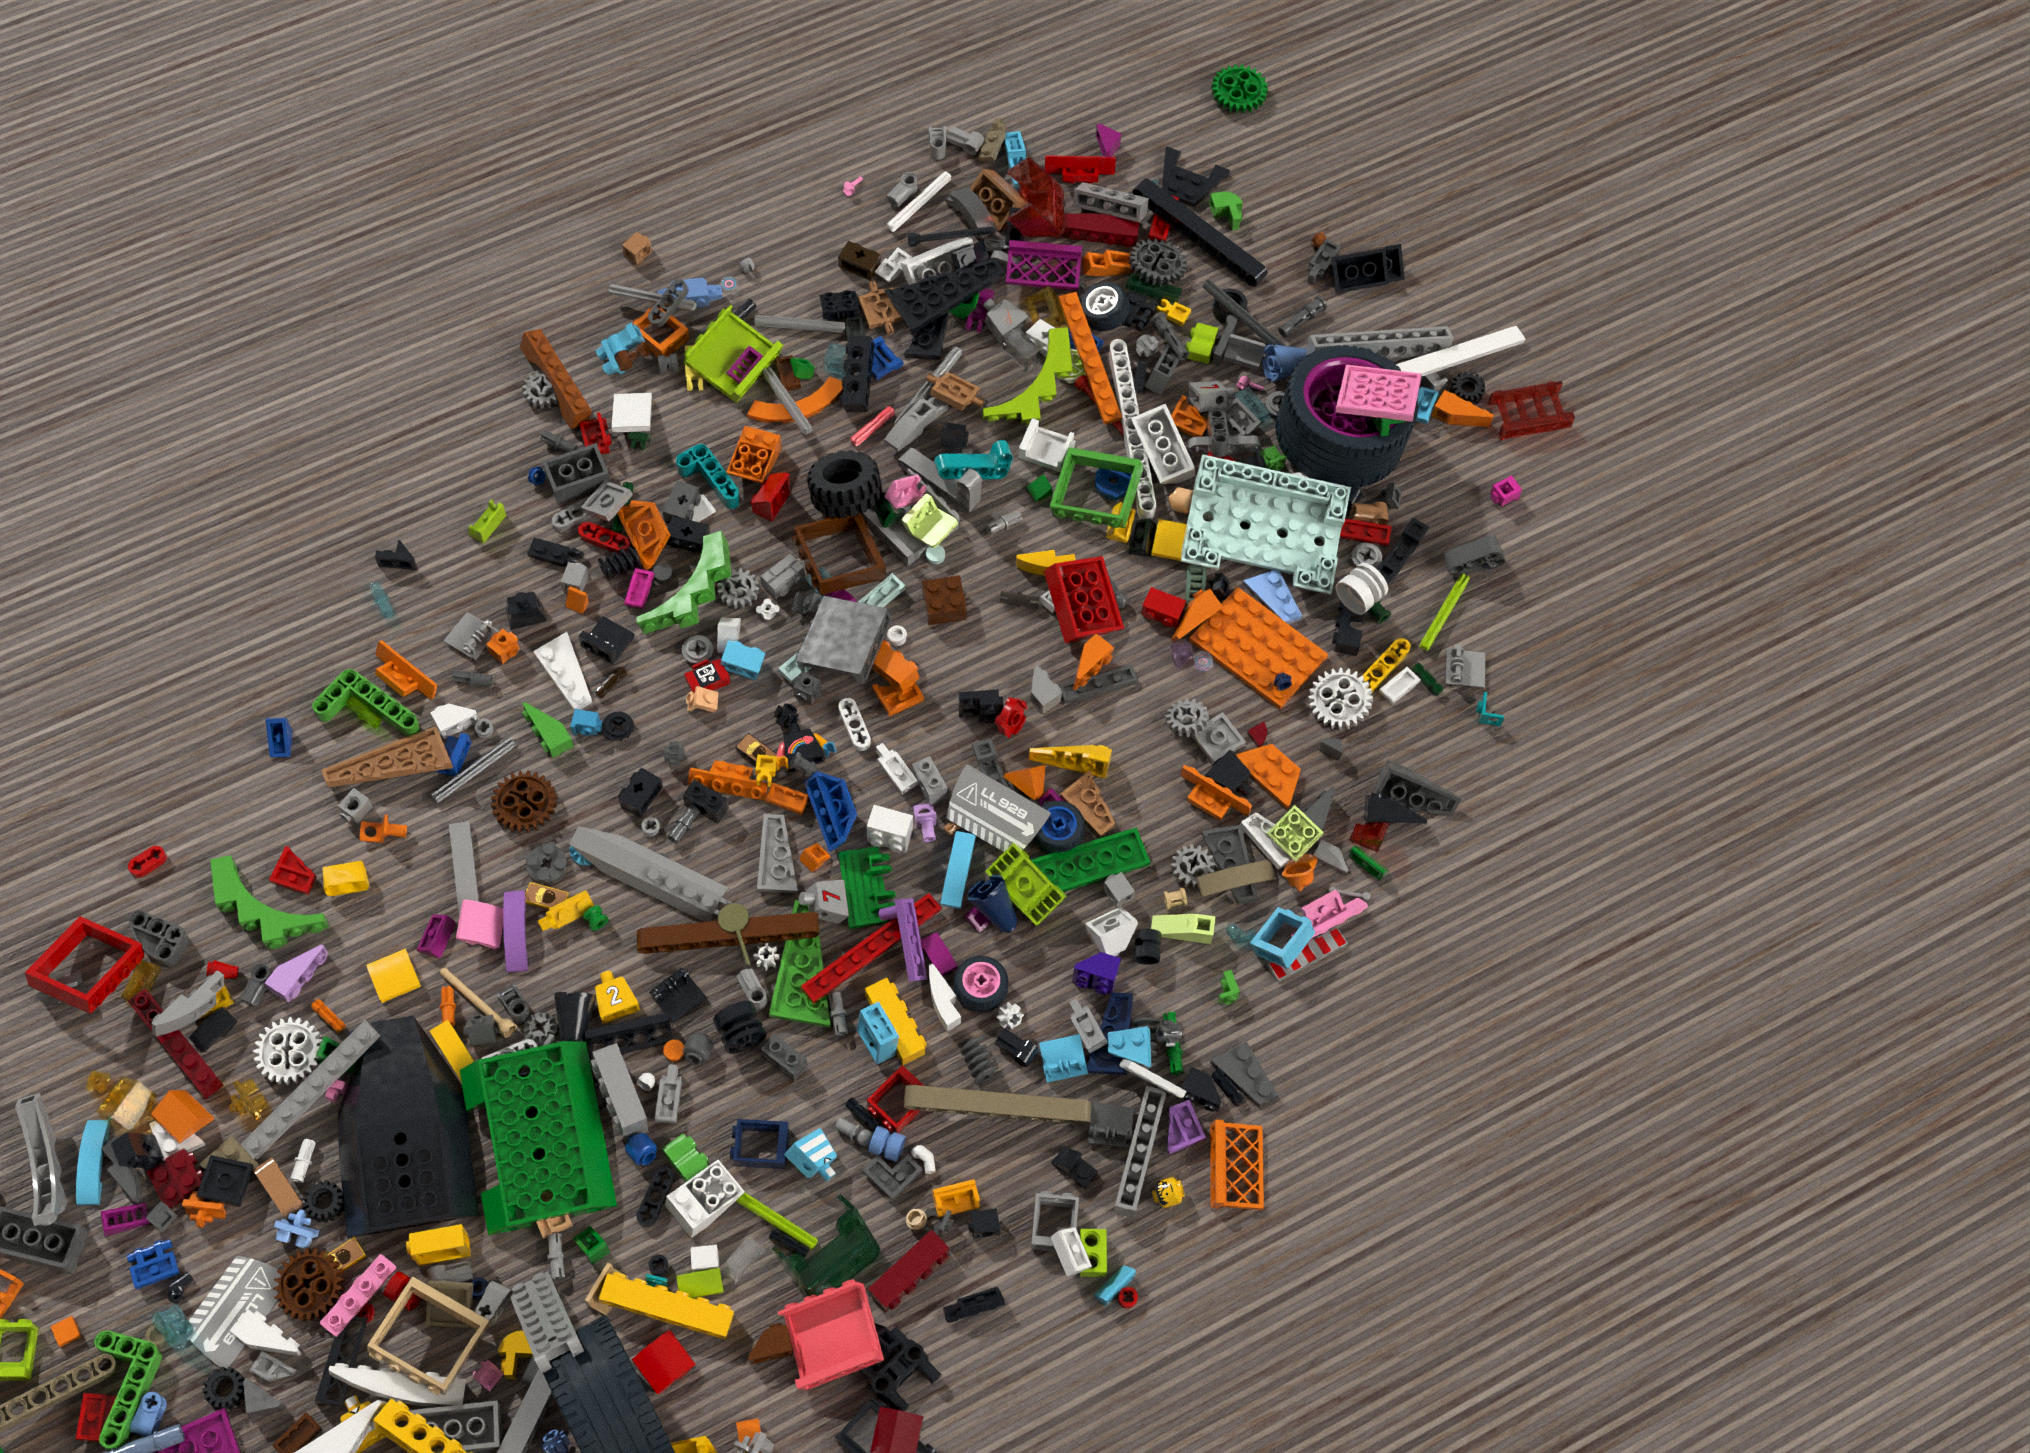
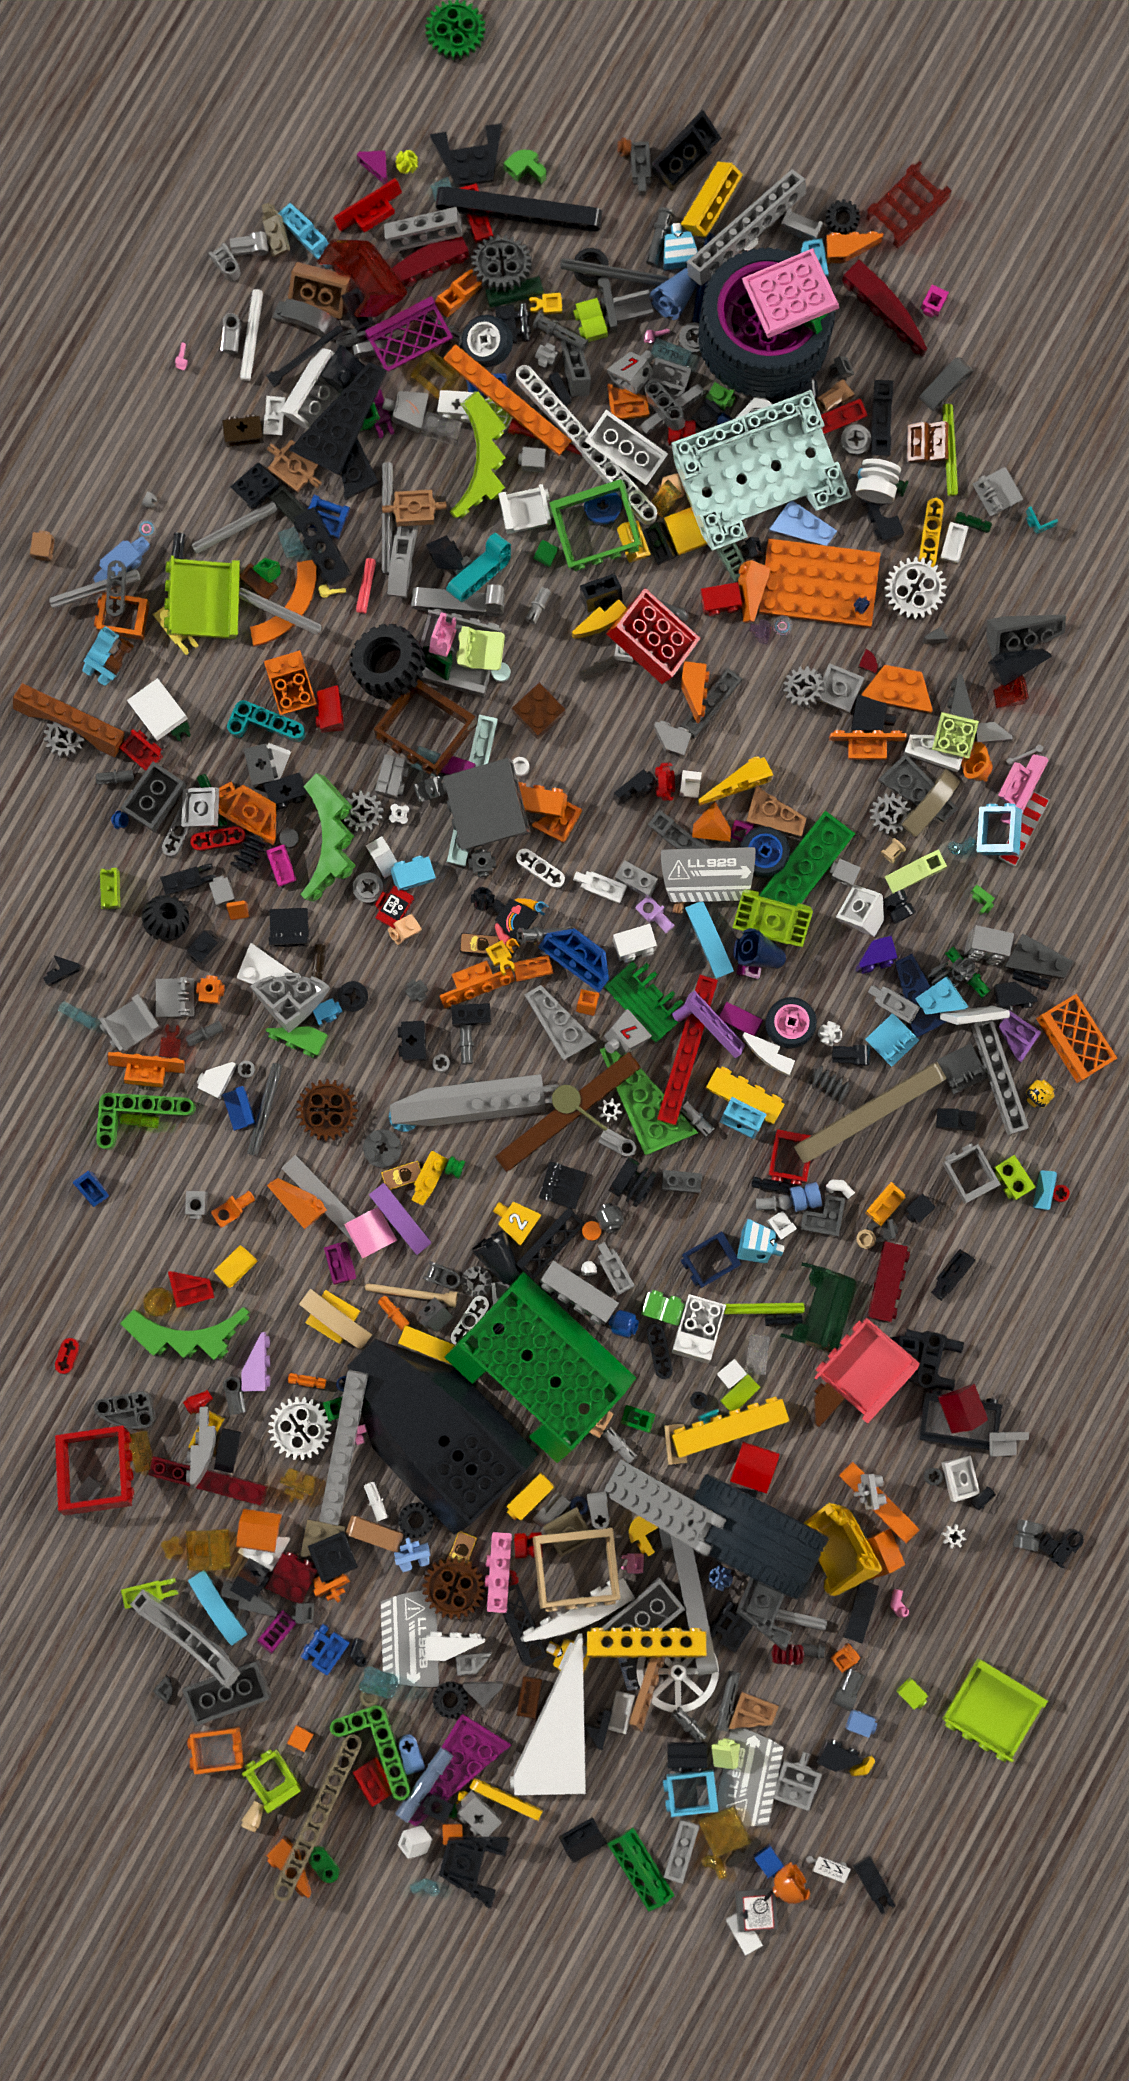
camera: 30 degrees left, 20 degrees up
(52, 1105) = (153, 1588): none -> lime hinge
(257, 864) = (157, 1301): none -> clear yellow hair
(393, 978) = (335, 1319): none -> tan slope
(403, 757) = (205, 1136): medium nougat wing -> none
(417, 633) = (129, 1024): none -> light grey panel
(437, 669) = (170, 1046): none -> clear red plate
(441, 865) = (301, 1204): none -> orange slope
(512, 569) = (165, 918): none -> black wheel
(564, 690) = (290, 997): none -> light grey brick
(668, 363) = (152, 641): dark grey wheel -> none
(753, 354) = (227, 587): magenta slope -> none
(836, 412) = (325, 592): none -> light yellow hand
(847, 1157) = (781, 1225): none -> white panel
(1032, 734) = (690, 784): none -> white panel
(1063, 540) = (601, 592): none -> black brick
(1071, 1251) = (1000, 1190): white slope -> none
(1079, 413) = (532, 459): none -> light grey brick
(1133, 153) = (406, 162): none -> neon yellow gear
(1169, 502) = (665, 498): none -> clear yellow tile
(1206, 1024) = (988, 945): none -> light grey brick
(1308, 327) = (678, 248): none -> torso
(1365, 312) = (712, 199): none -> yellow brick
(1368, 862) = (1024, 718): green slope -> none
(1428, 594) = (928, 442): none -> slope
(1460, 468) = (884, 303): none -> dark red slope
(1464, 352) = (817, 188): white tile -> none

